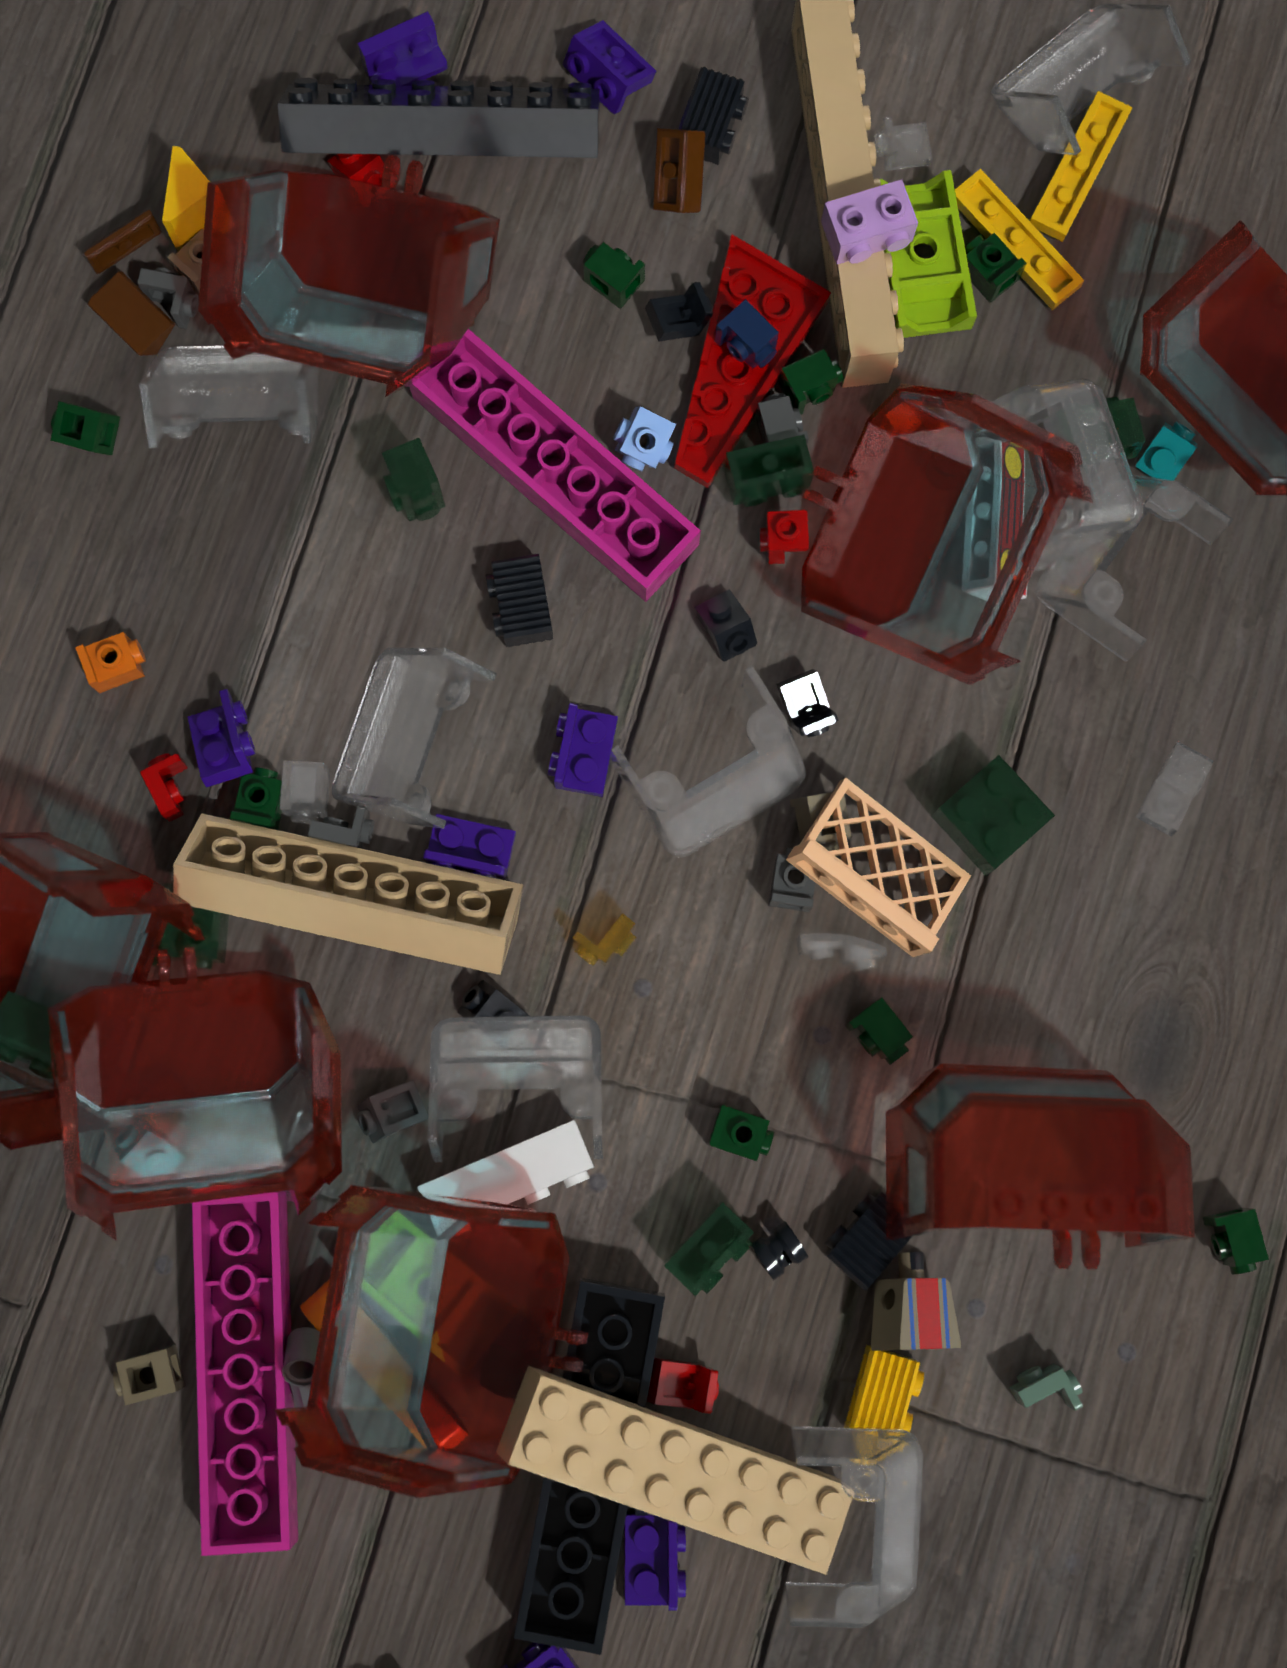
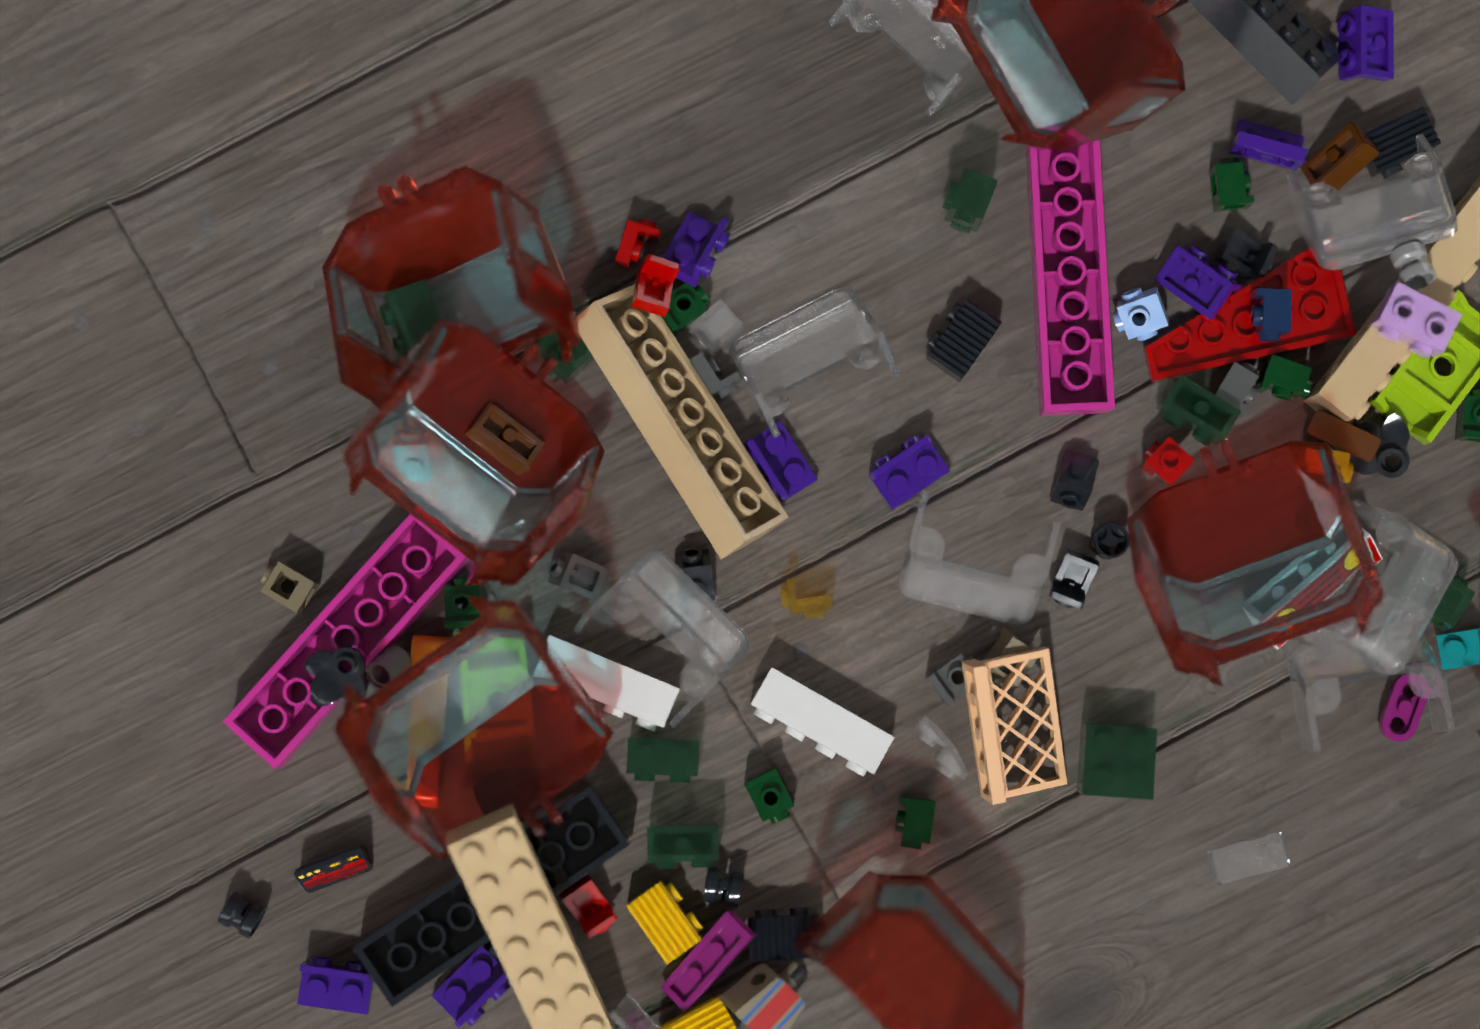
camera: 50 degrees right, 5 degrees up
(124, 669) = (681, 144): orange brick -> none
(214, 1058) = (505, 439): none -> reddish brown slope
(215, 800) = (655, 285): none -> red bracket
(257, 1415) = (330, 676): none -> black plate
(319, 1254) = (460, 618): none -> dark green brick
(430, 1582) = (334, 869): none -> slope
(612, 214) = (1268, 145): none -> dark purple bracket
(617, 1192) = (663, 757): none -> clear green brick
(662, 370) = (1197, 280): none -> dark purple bracket
(721, 1026) = (822, 721): none -> white brick
(754, 178) = (1377, 217): none -> clear windscreen
(760, 1330) = (665, 921): none -> yellow brick
(808, 637) = (1115, 540): none -> black wheel
(822, 182) = (1412, 265): none -> light grey wheel
(830, 1327) = (708, 960): none -> magenta plate
(915, 370) = (1344, 436): none -> reddish brown slope
(934, 359) = (1394, 439): none -> black plate
(1173, 546) = (1406, 709): none -> magenta plate

